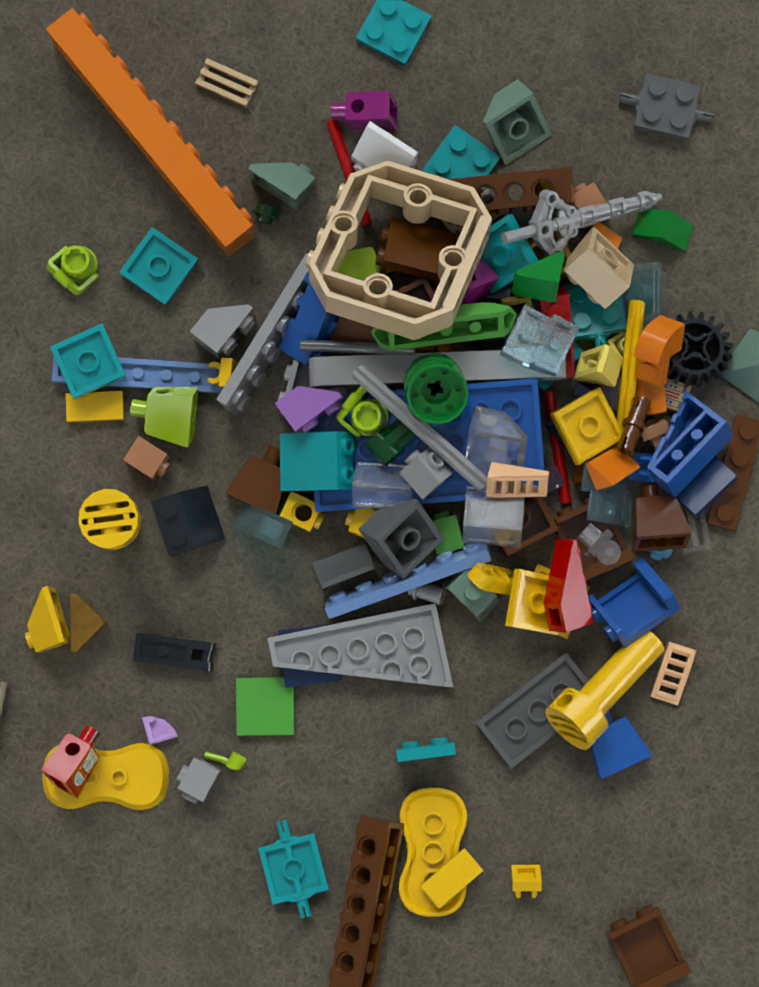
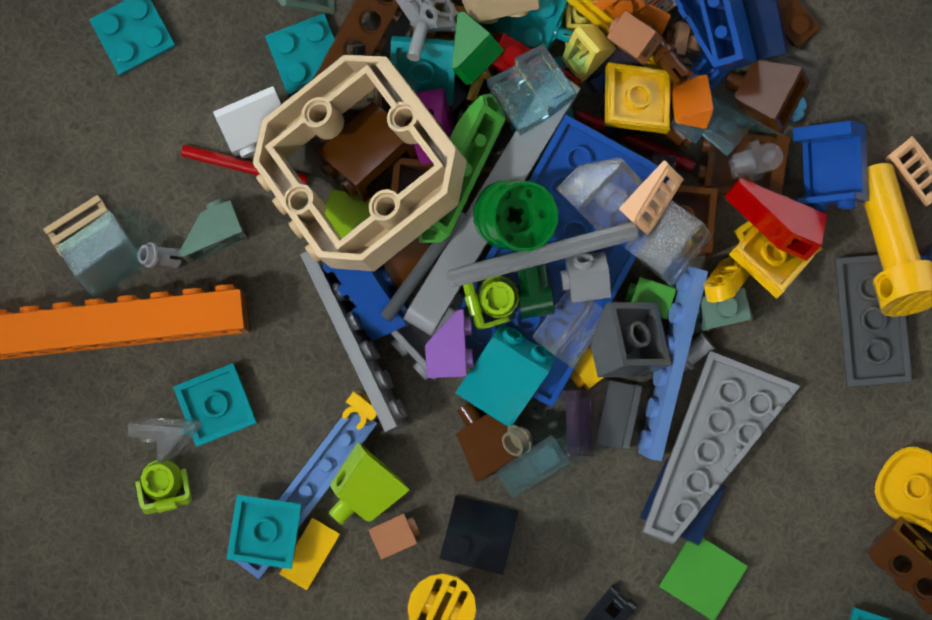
camera: 55 degrees left, 0 degrees up
(114, 245) = (168, 433): none -> clear slope
(215, 112) = (100, 254): none -> clear light blue slope
(222, 327) = (315, 382): light grey slope -> none
(238, 149) = (153, 255): none -> light grey pin
(265, 213) = (231, 269): dark green plate -> none
(274, 501) = (517, 440): none -> dark tan plate
(289, 512) = (527, 421): yellow brick -> none
(317, 540) = (578, 423): none -> plate
(375, 106) = (203, 97): magenta torso -> none
(412, 751) = (850, 438): teal plate -> none
(630, 393) = (633, 37): none -> nougat brick

